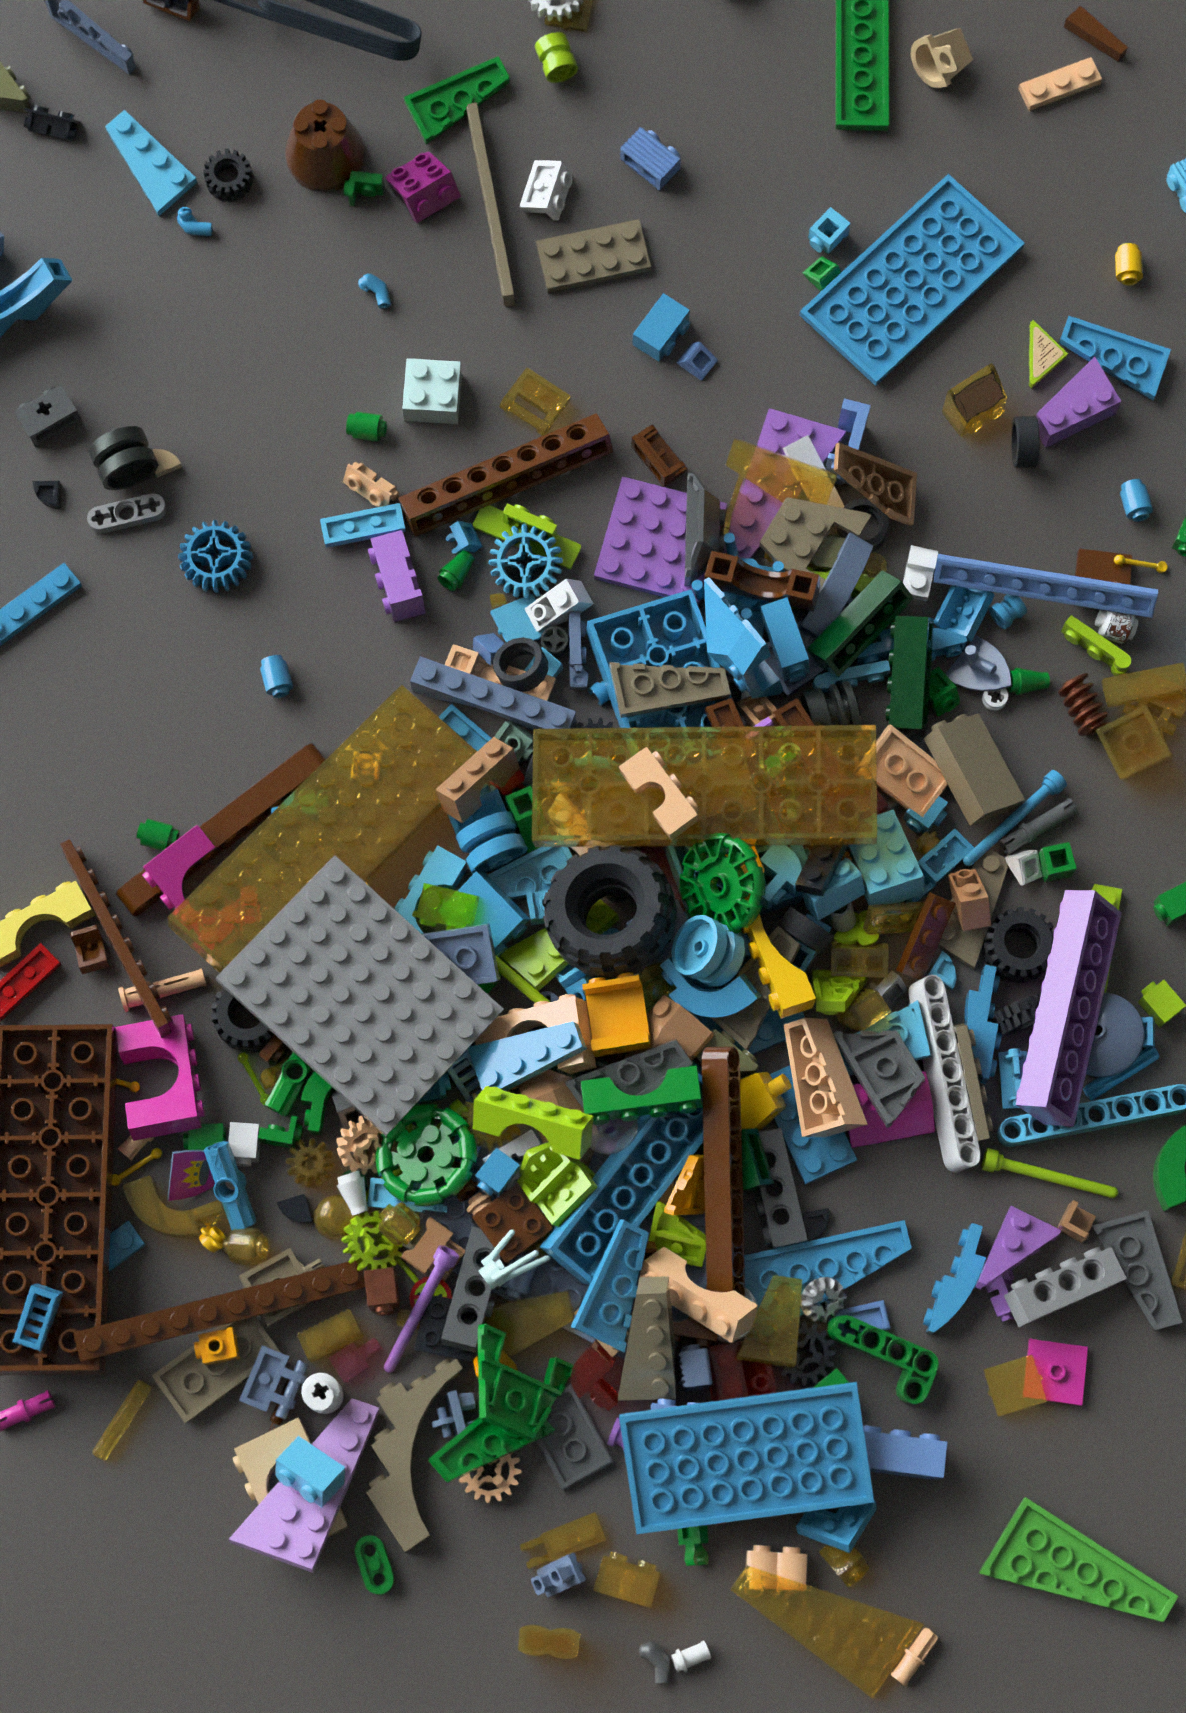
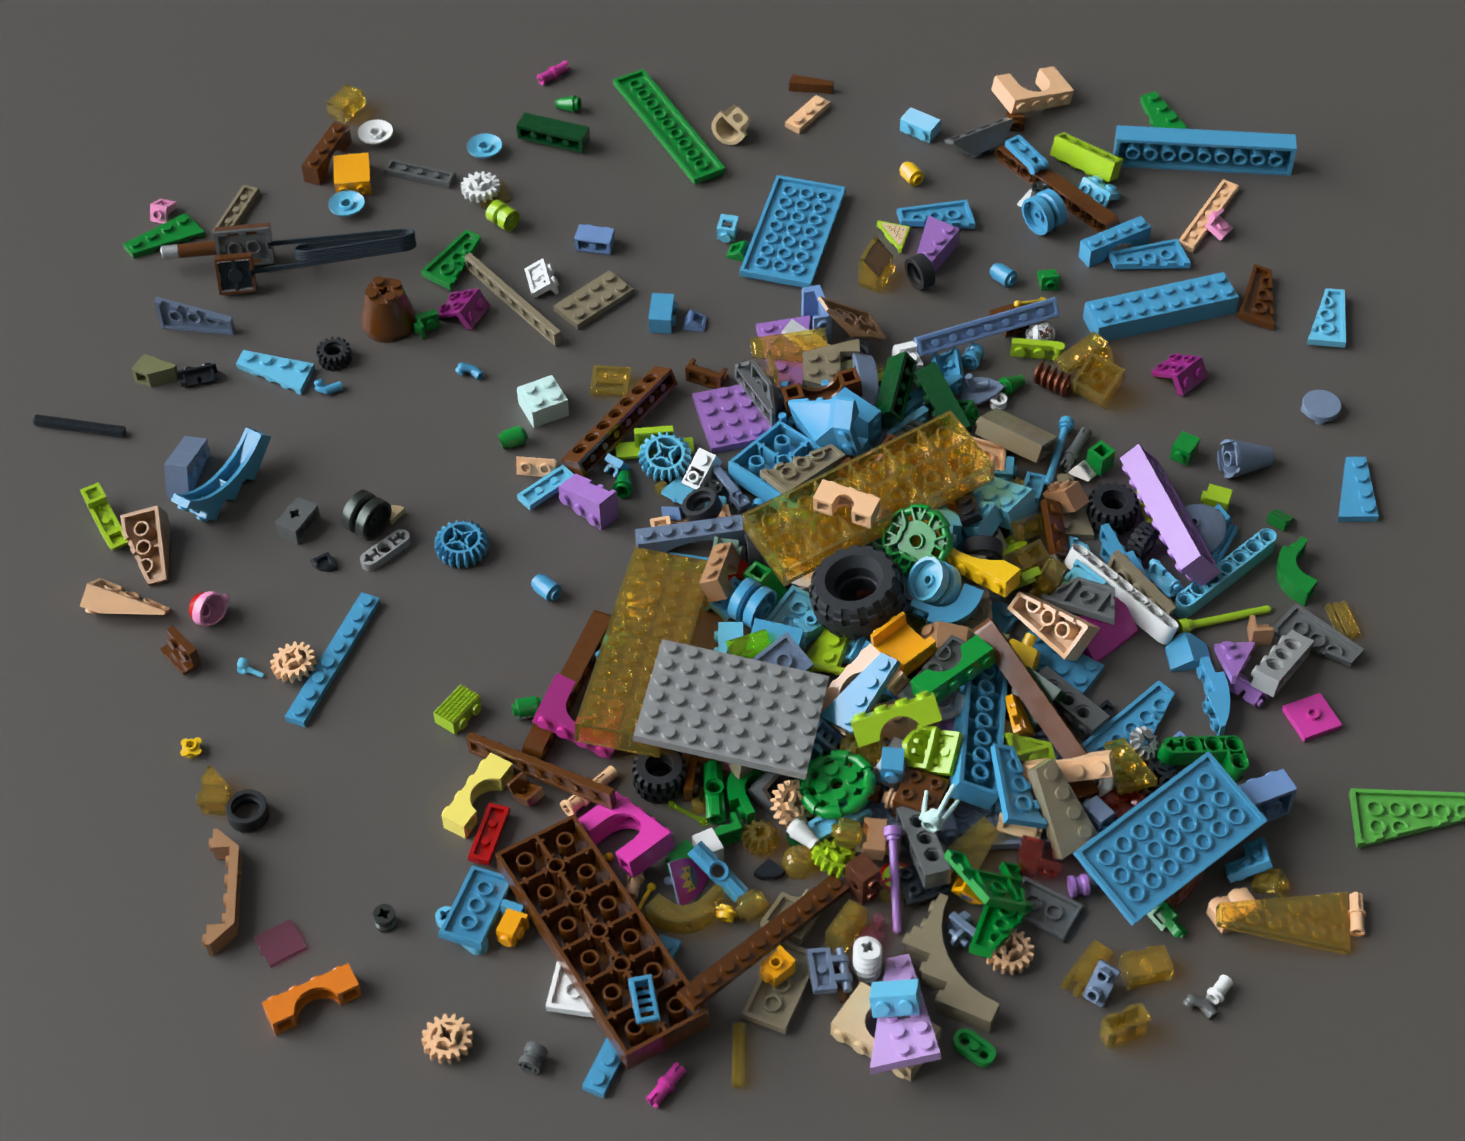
camera: 30 degrees left, 25 degrees down
(79, 794) = (458, 709): none -> lime brick
(970, 1198) = (1185, 652): none -> dark azure slope
(1015, 1385) = (1294, 734): clear yellow piece -> none

